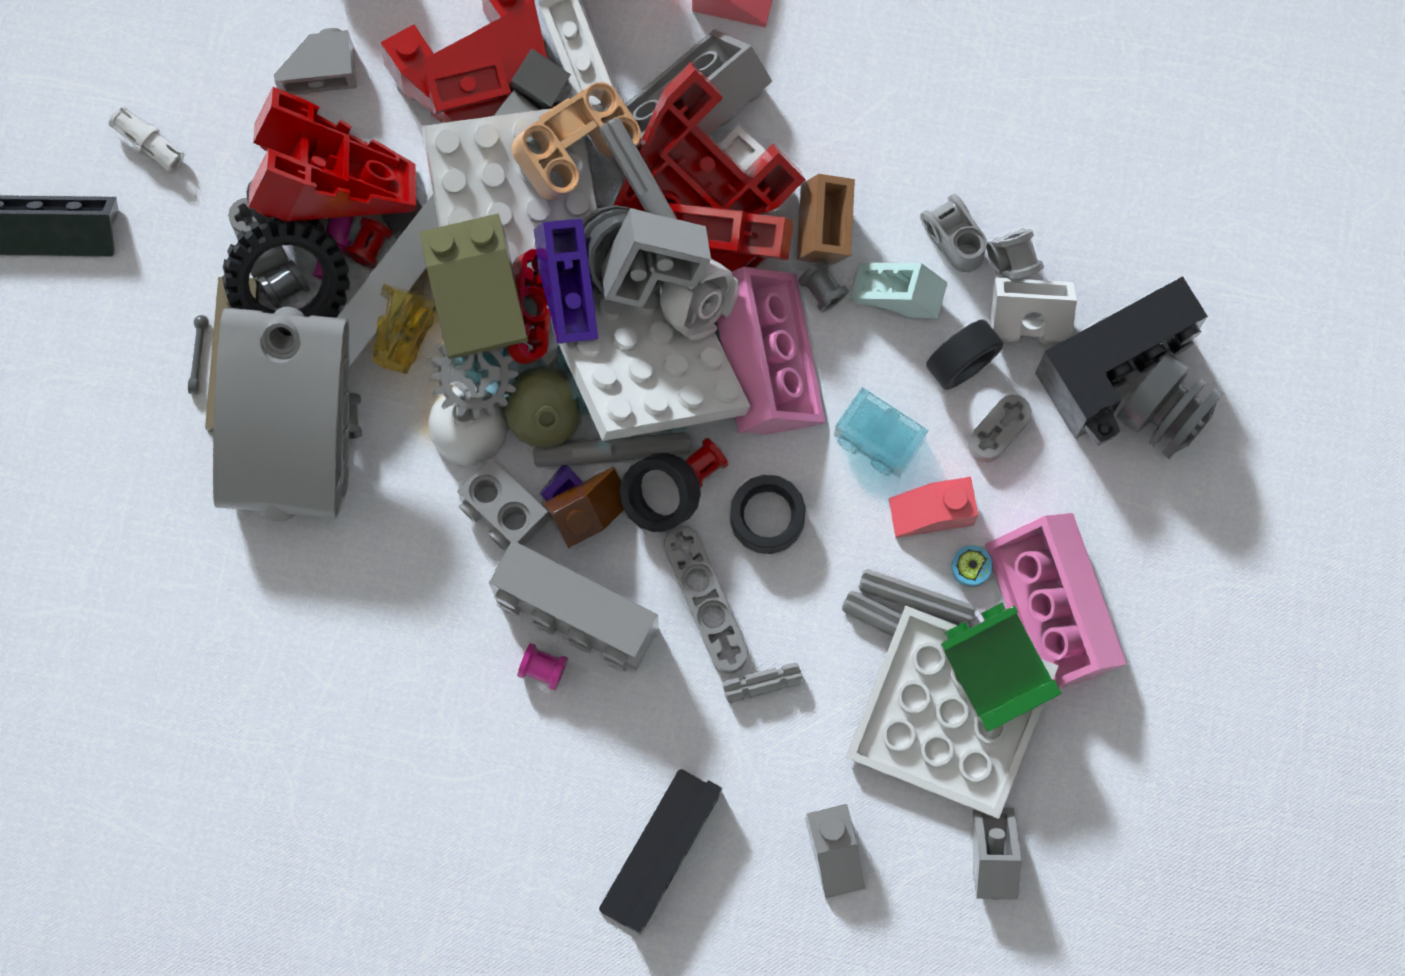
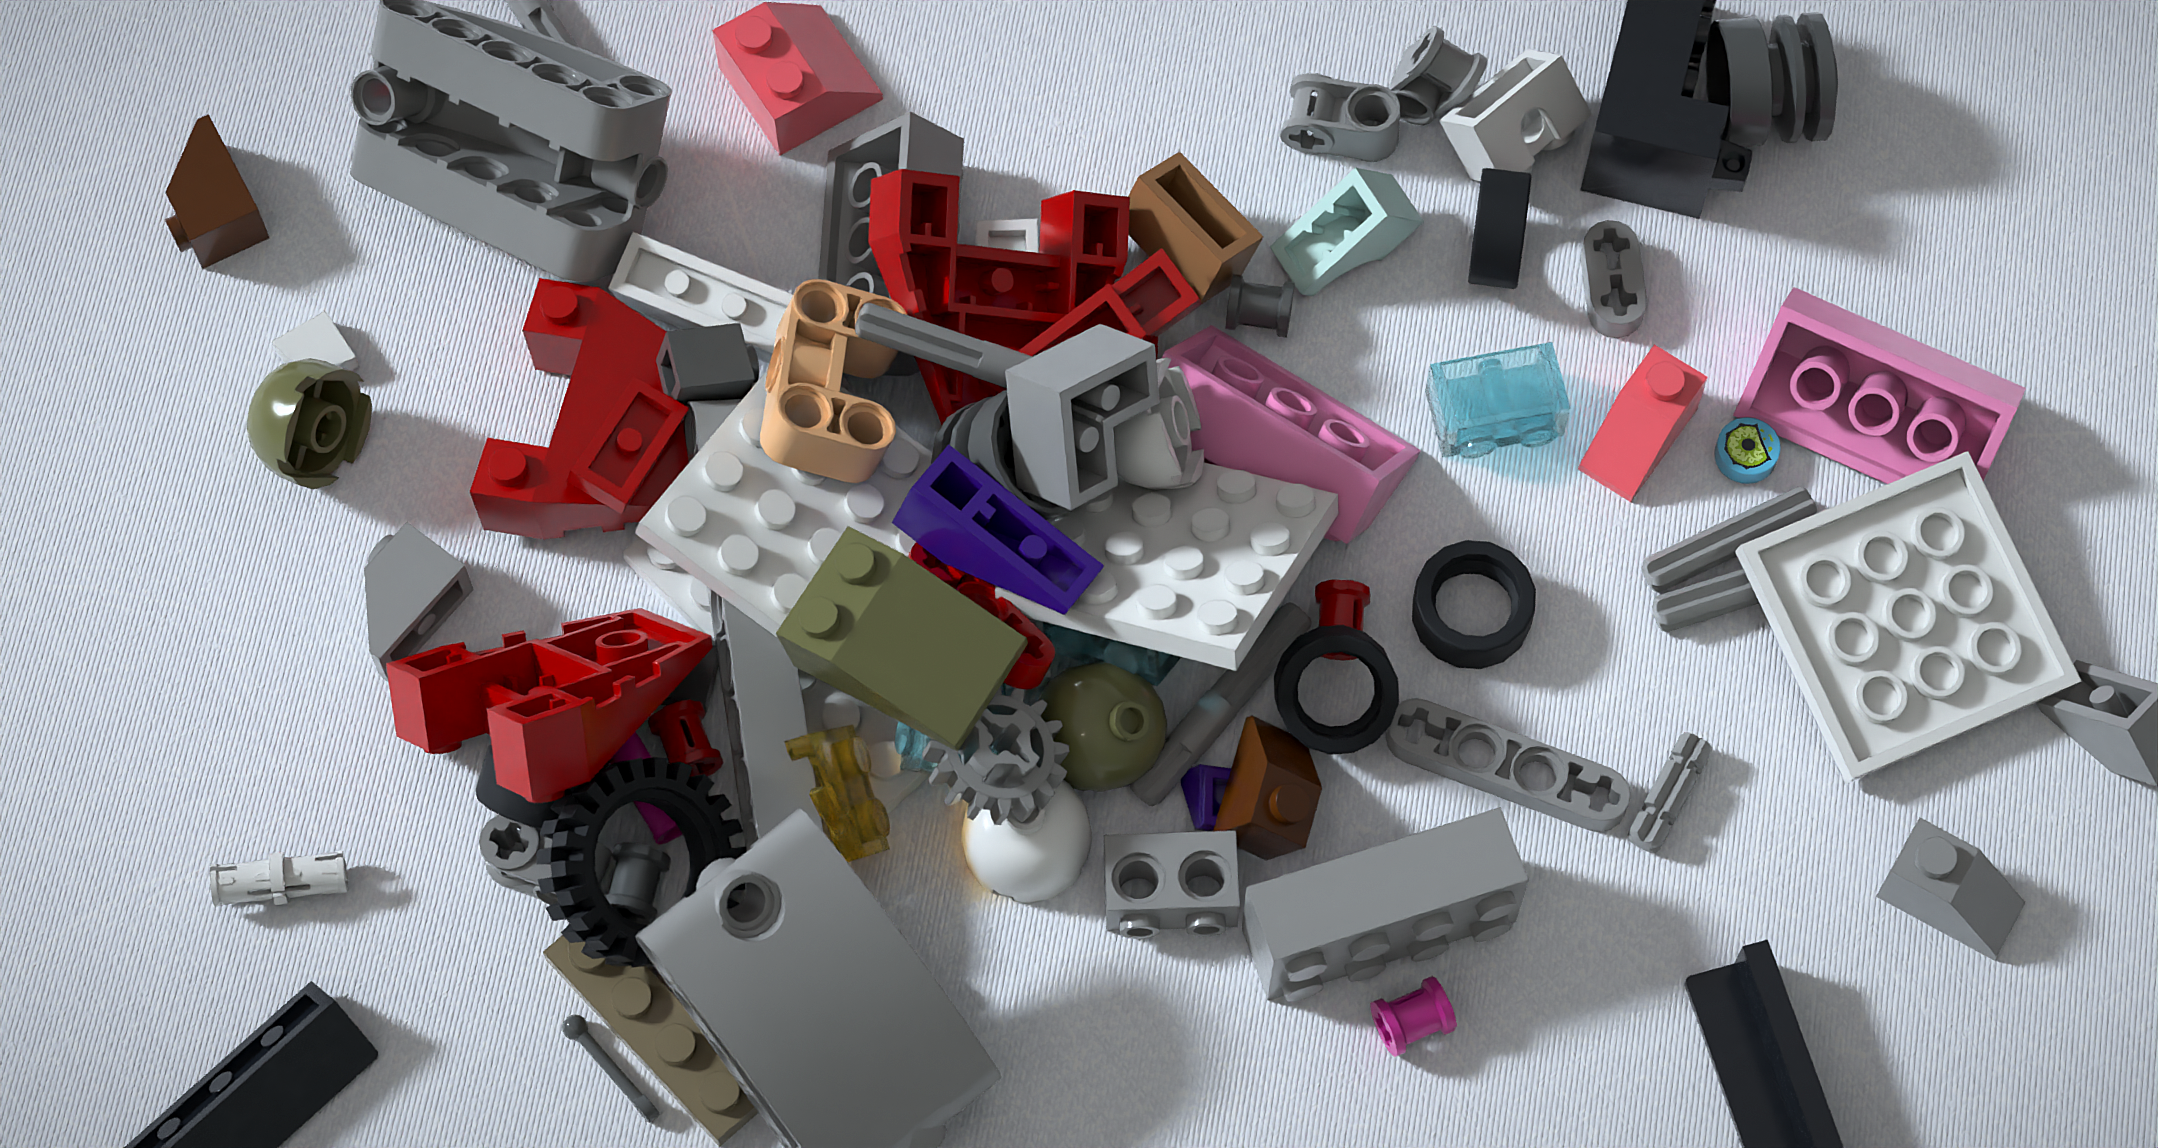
camera: 45 degrees left, 10 degrees down
(998, 667) = (1915, 512): green panel -> none

